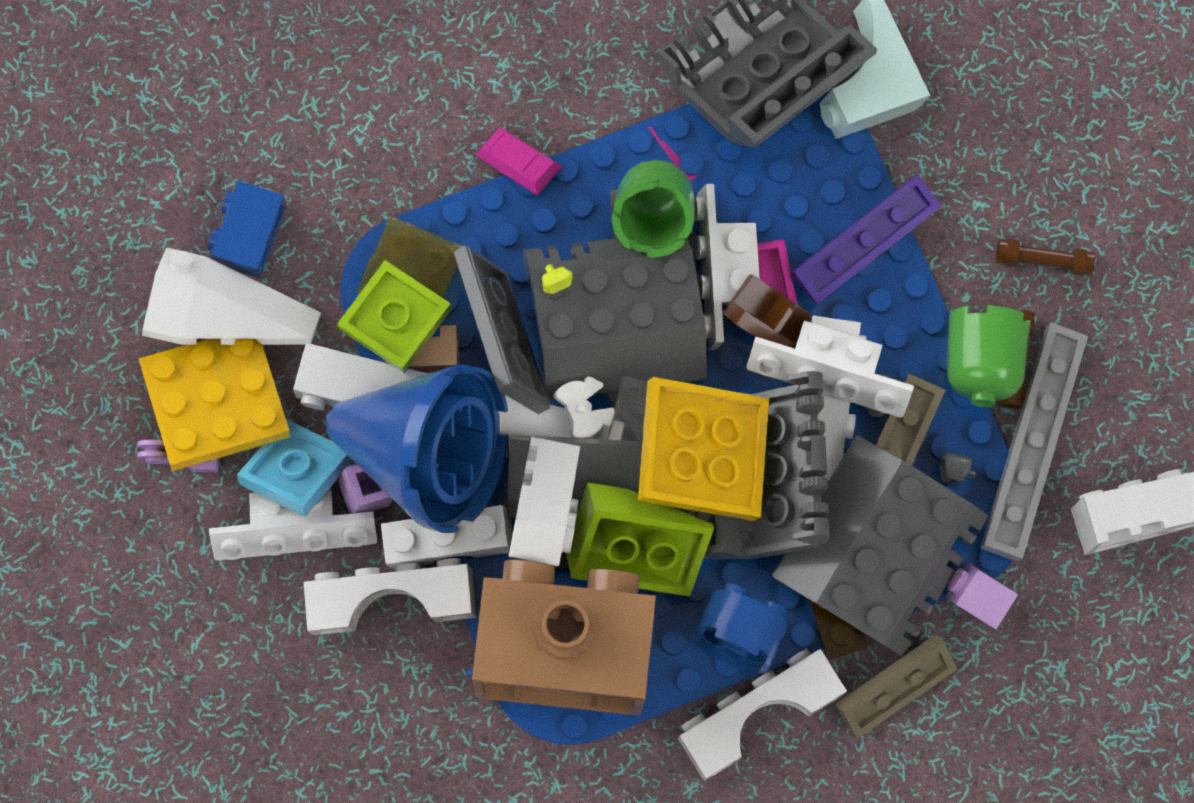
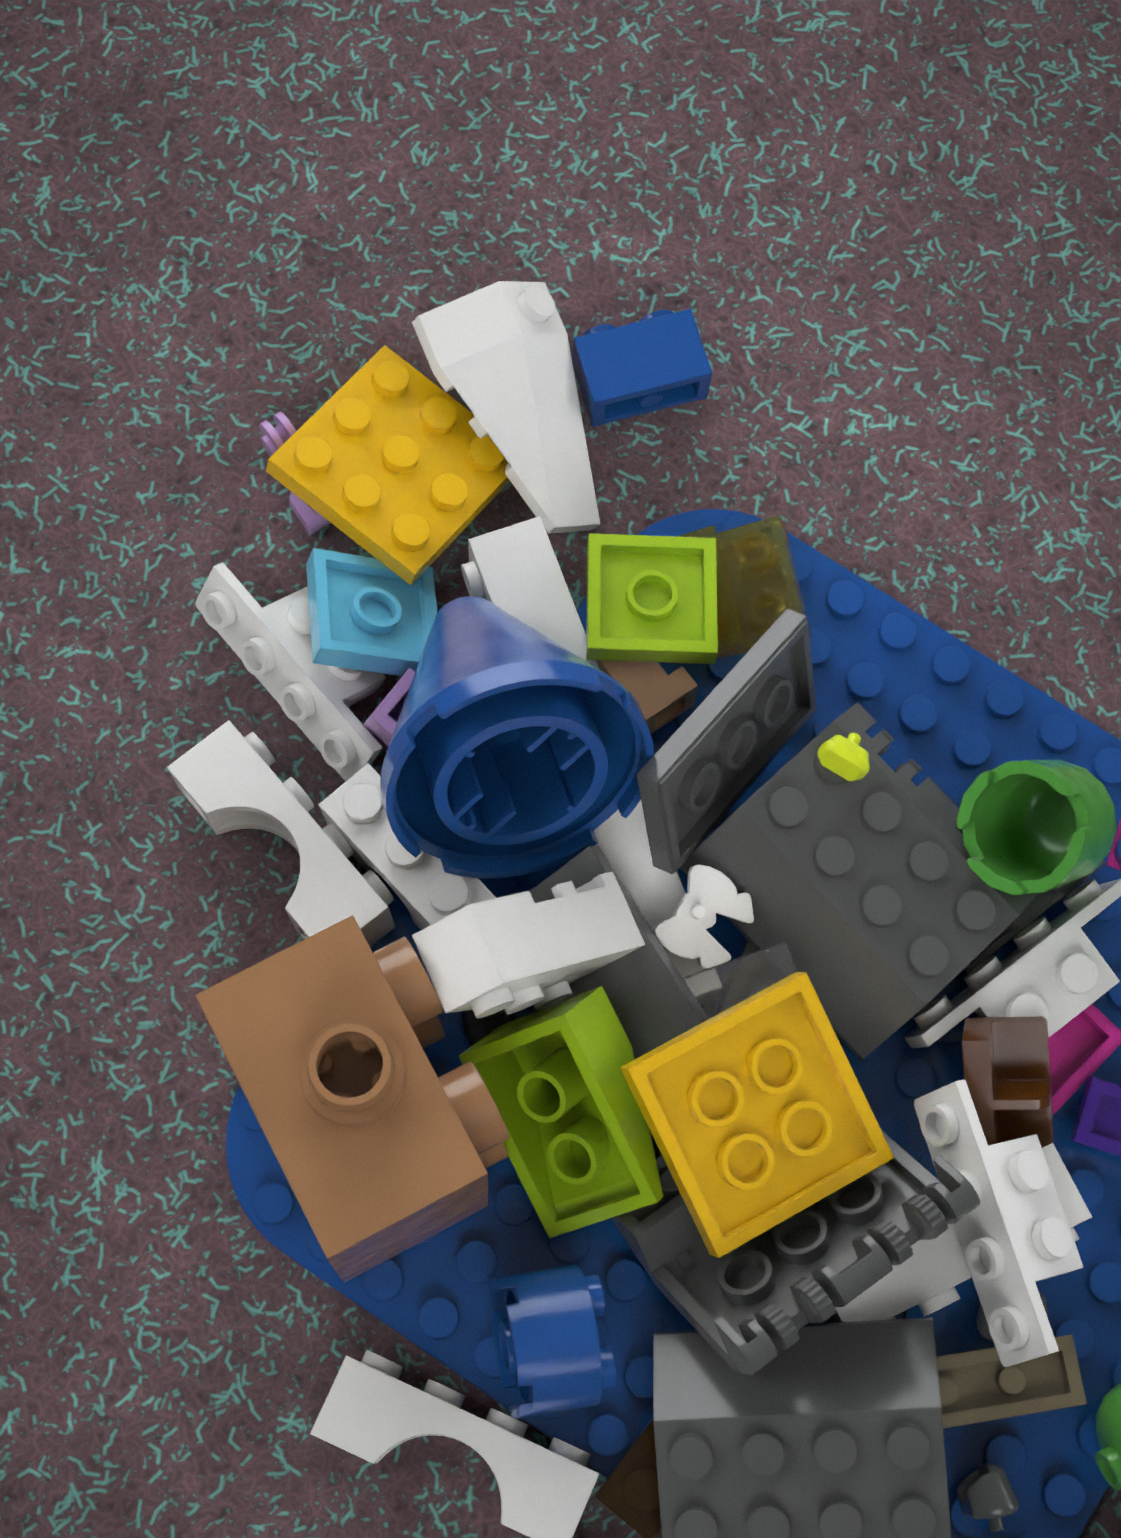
camera: 55 degrees right, 5 degrees down
(518, 161) = (971, 631): dark pink tile -> none

